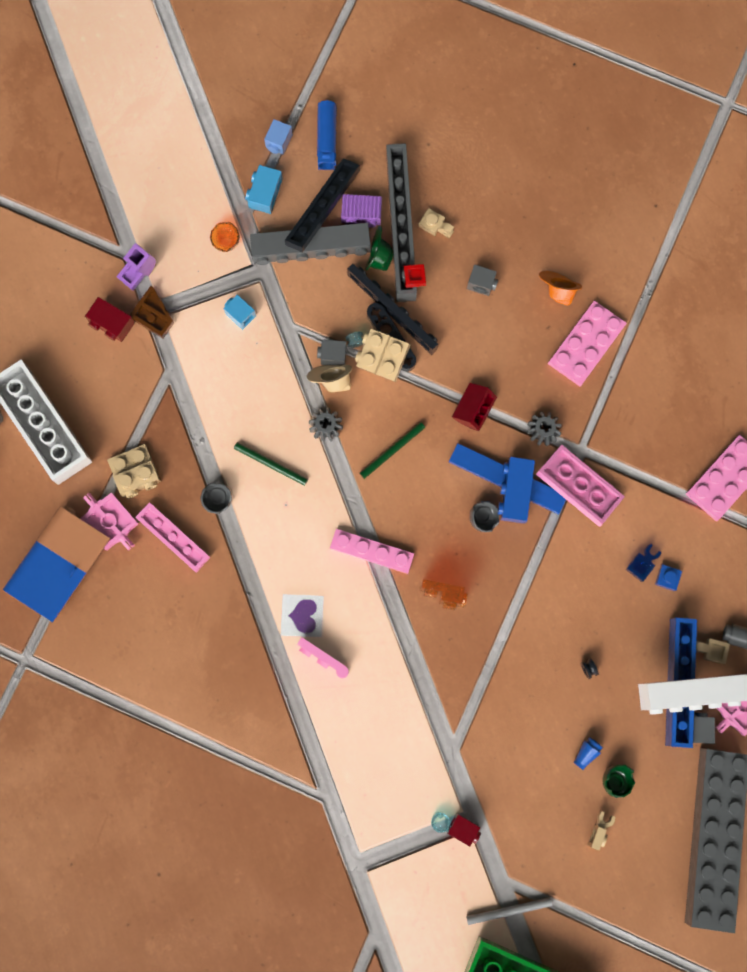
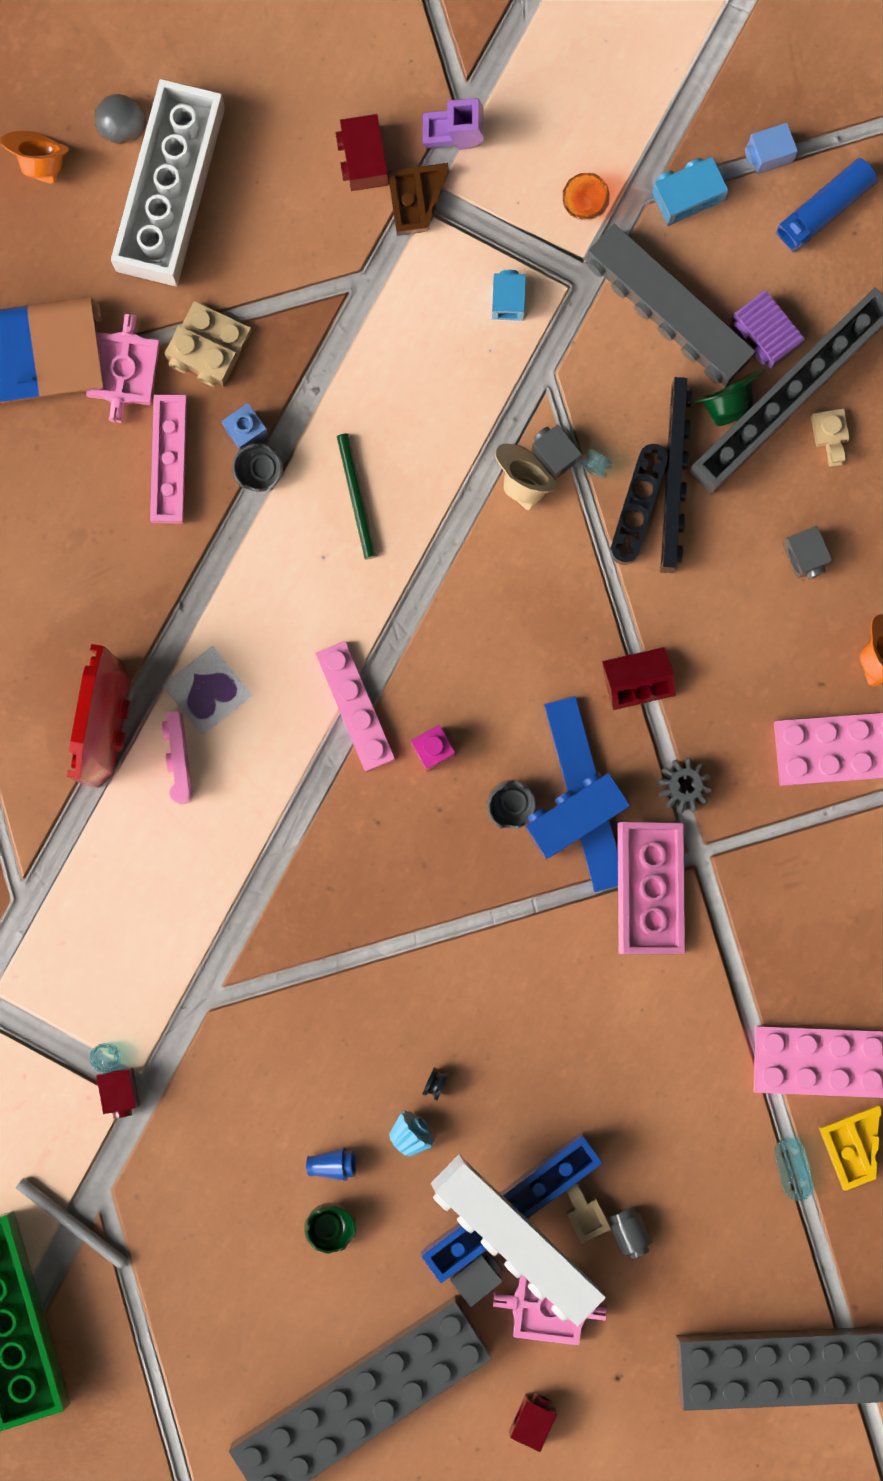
camera: 50 degrees right, 5 degrees up
(191, 487) = (245, 427): none -> medium blue brick
(271, 675) = (99, 718): none -> red wedge
(317, 425) = (462, 509): dark grey gear -> none
(322, 205) = (729, 277): black plate -> none
(382, 354) = (604, 512): tan plate -> none
(392, 450) = (497, 625): dark green bar -> none
(414, 275) = (733, 465): red plate -> none
(425, 530) = (433, 748): none -> dark pink brick
(450, 595) = (376, 842): clear orange plate -> none
(598, 836) = (244, 1258): tan plate -> none
(604, 701) = (411, 1134): none -> medium azure piece
(641, 565) = (616, 1044): clear blue plate -> none
(668, 577) = (630, 1089): blue plate -> none

